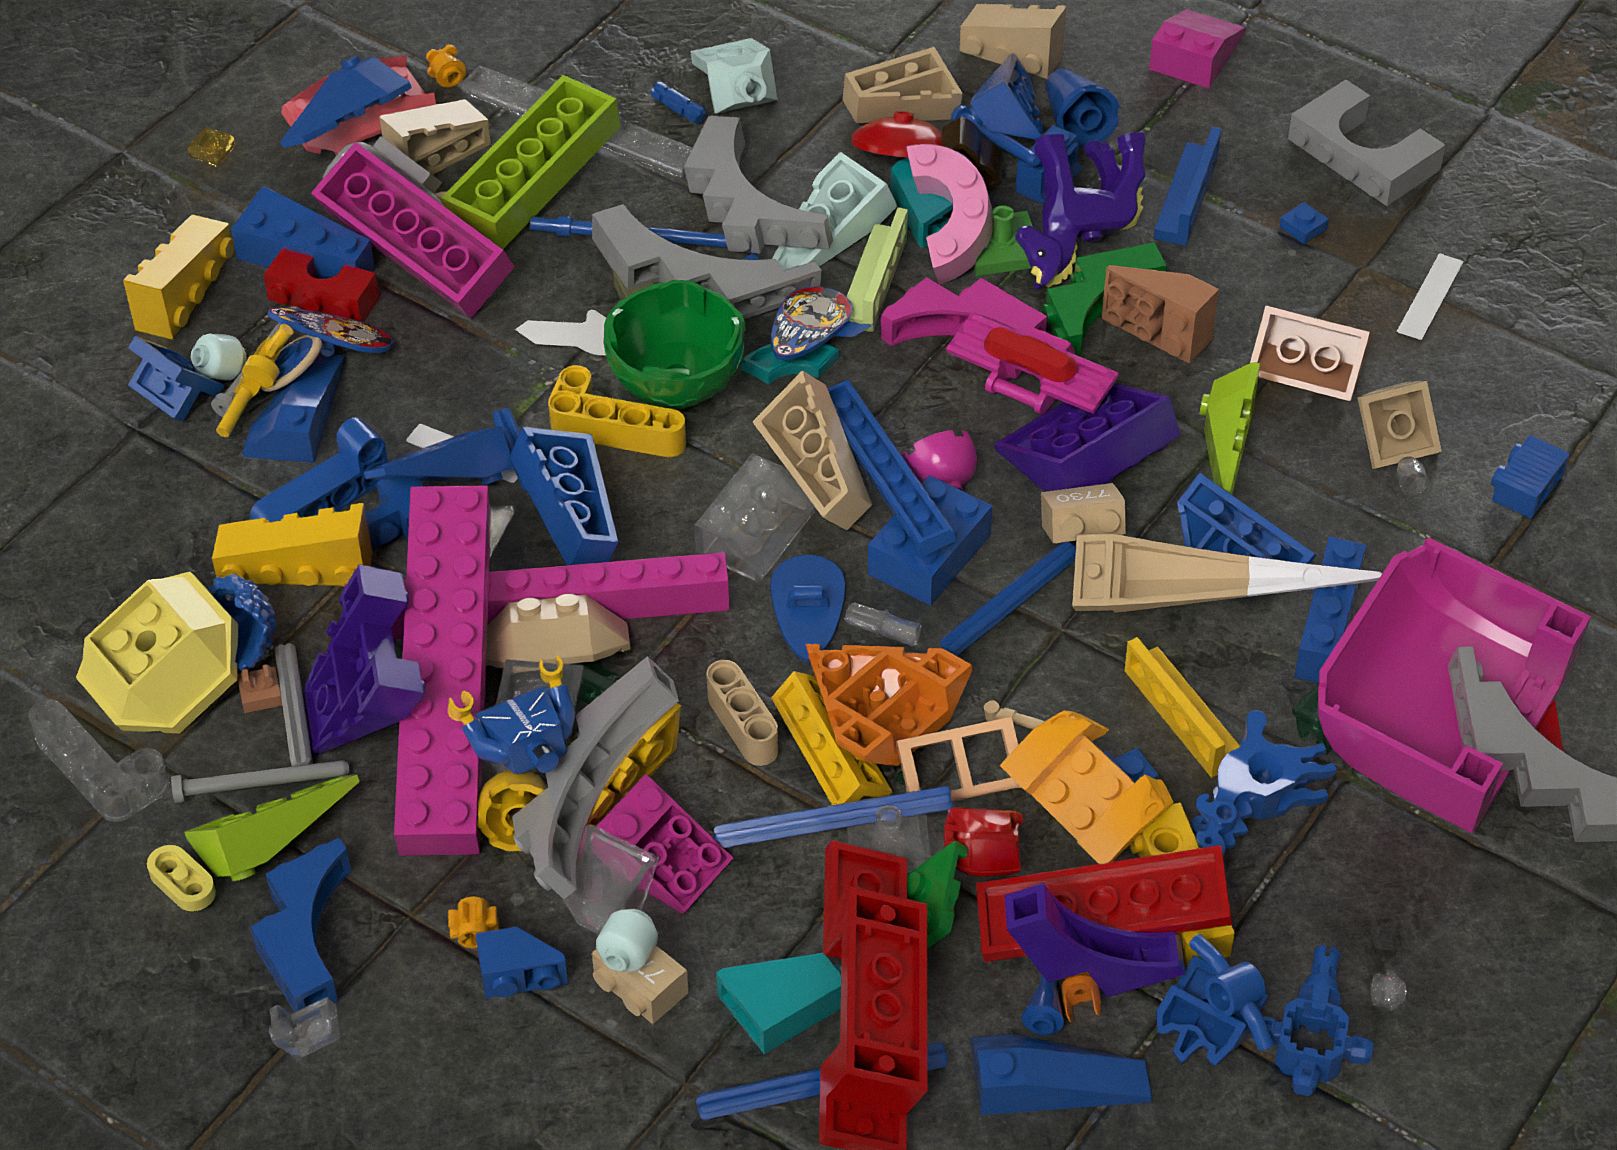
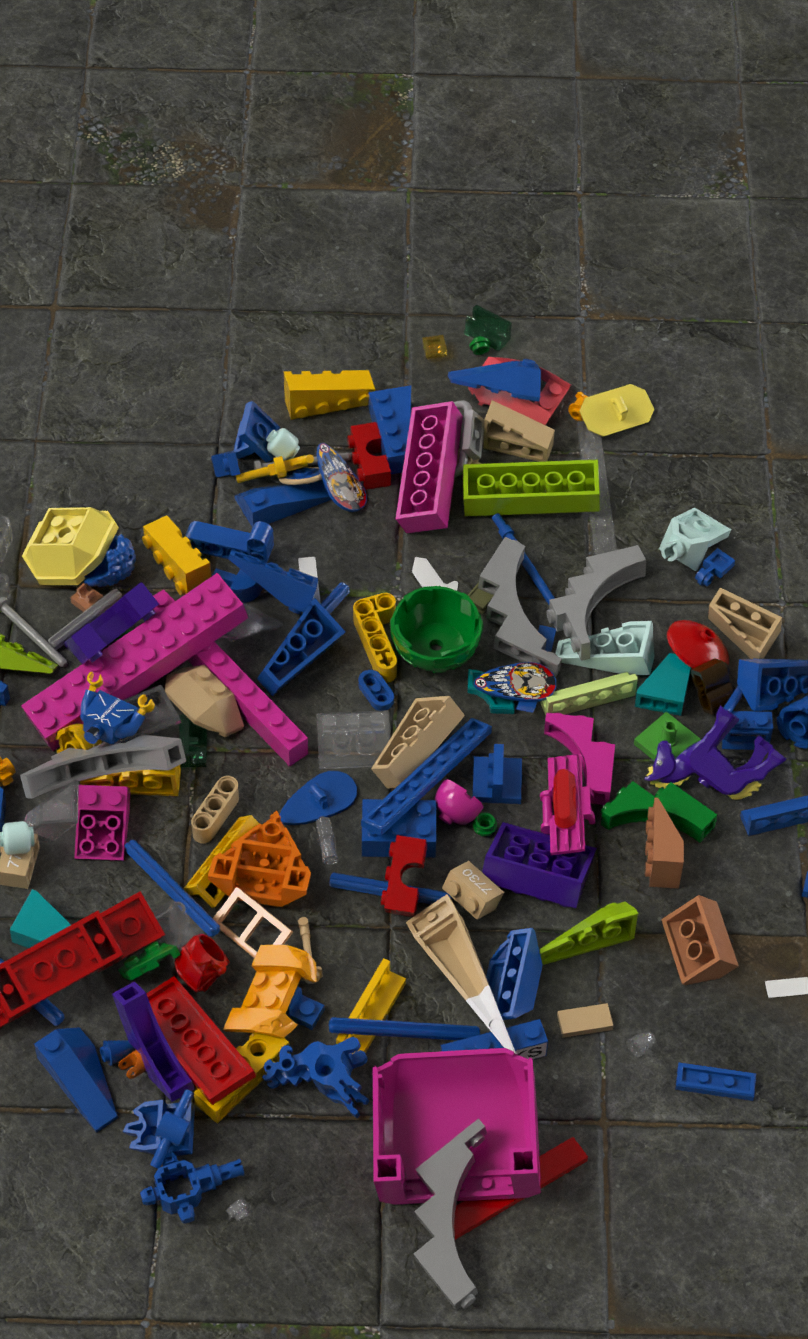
camera: 55 degrees right, 5 degrees up
(191, 426) = (225, 464): none -> blue bracket
(236, 84) = (489, 326): none -> clear green hinge
(255, 105) = (480, 345): none -> green plate
(484, 39) = (616, 410): none -> light yellow shield
(678, 103) = (648, 527): blue axle -> none
(694, 461) = (376, 692): none -> blue plate
(794, 76) = (717, 564): none -> blue plate
(924, 410) = (497, 778): none -> blue bracket
(971, 222) = (660, 705): bright pink brick -> none
(989, 460) = (485, 819): none -> green plate
(1035, 584) = (406, 854): none -> red arch
(1243, 678) = (402, 1029): none -> blue axle
(1340, 509) = (585, 1020): none -> tan tile
(1399, 423) = (673, 1014): tan slope -> none
(1498, 441) = (715, 1081): none -> blue tile
(1529, 476) = (687, 1106): blue brick -> none

